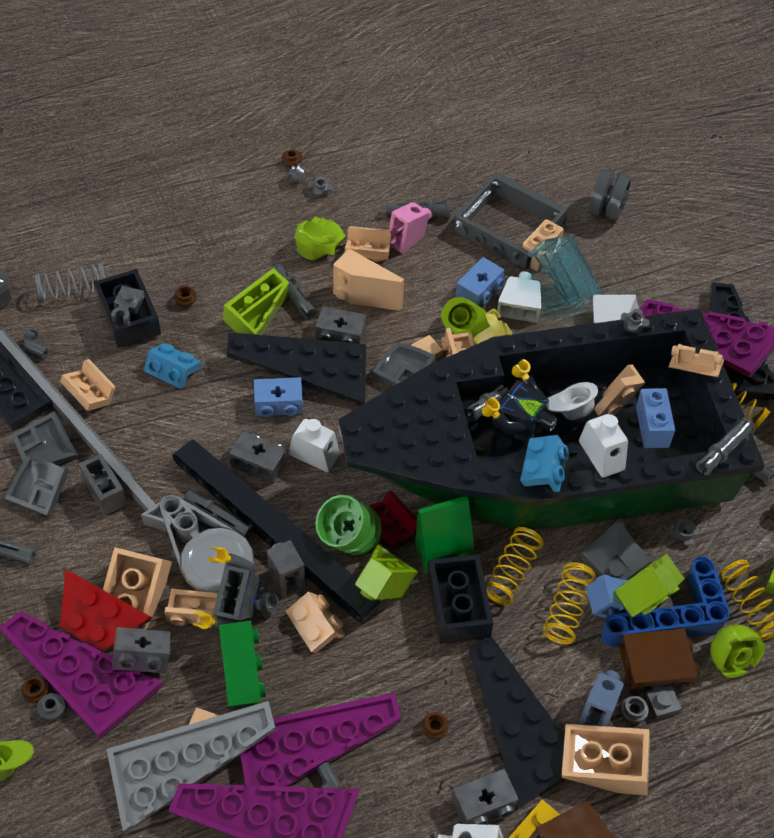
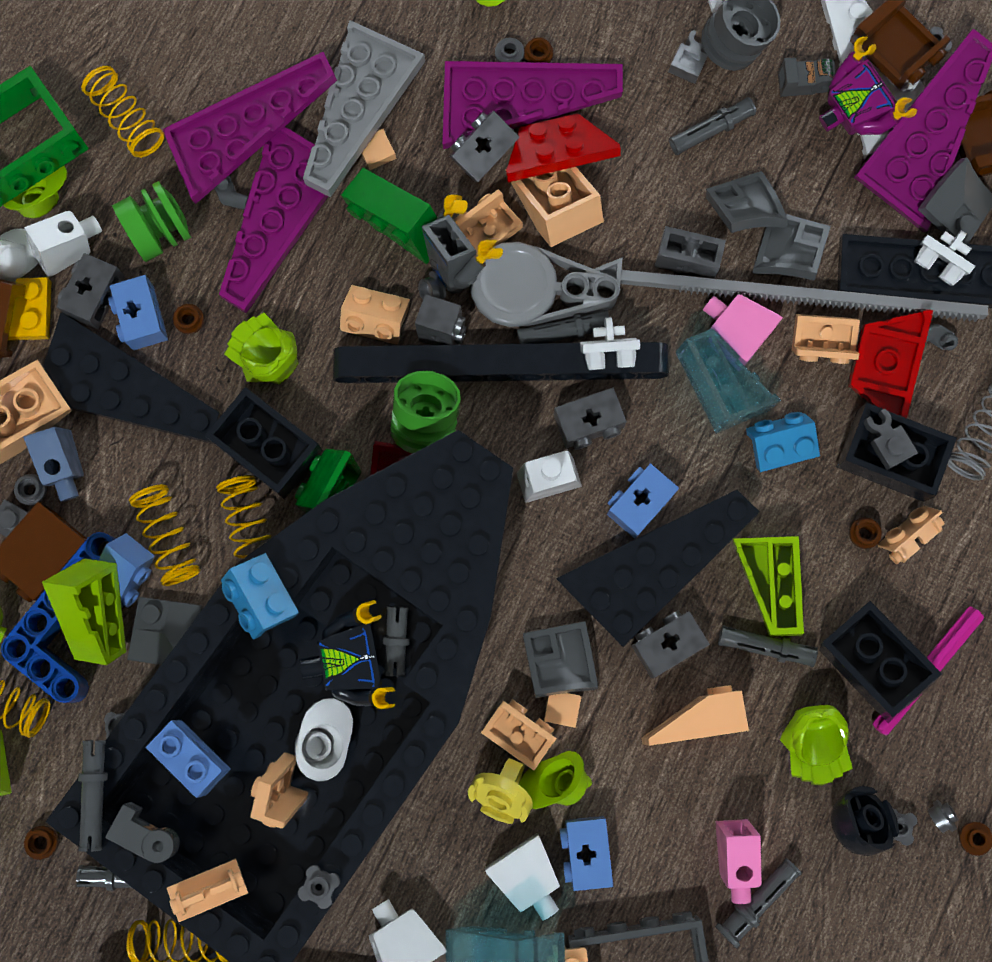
camera: 140 degrees right, 25 degrees up
(68, 350) = (890, 361): none -> red wing
(124, 429) = (742, 324): none -> bright pink torso
(163, 277) = (922, 523): none -> light nougat hinge
(169, 408) = (722, 382): none -> clear light blue wedge
(207, 468) = (624, 348): none -> white hips
(230, 225) = (940, 657): none -> dark pink axle
(251, 236) = (879, 661): none -> black brick
(336, 193) = (864, 822): none -> black cylinder
(369, 242) = (756, 786): light nougat bracket -> none
(385, 576) = (346, 391): lime wedge -> none
(399, 798) = (152, 221): none -> bright green wheel
(406, 656) = (263, 350): none -> lime hair
(466, 740) = (148, 325): none -> medium blue brick
(605, 444) = (214, 669): white torso -> none
(713, 408) = (142, 837): none -> dark grey leg

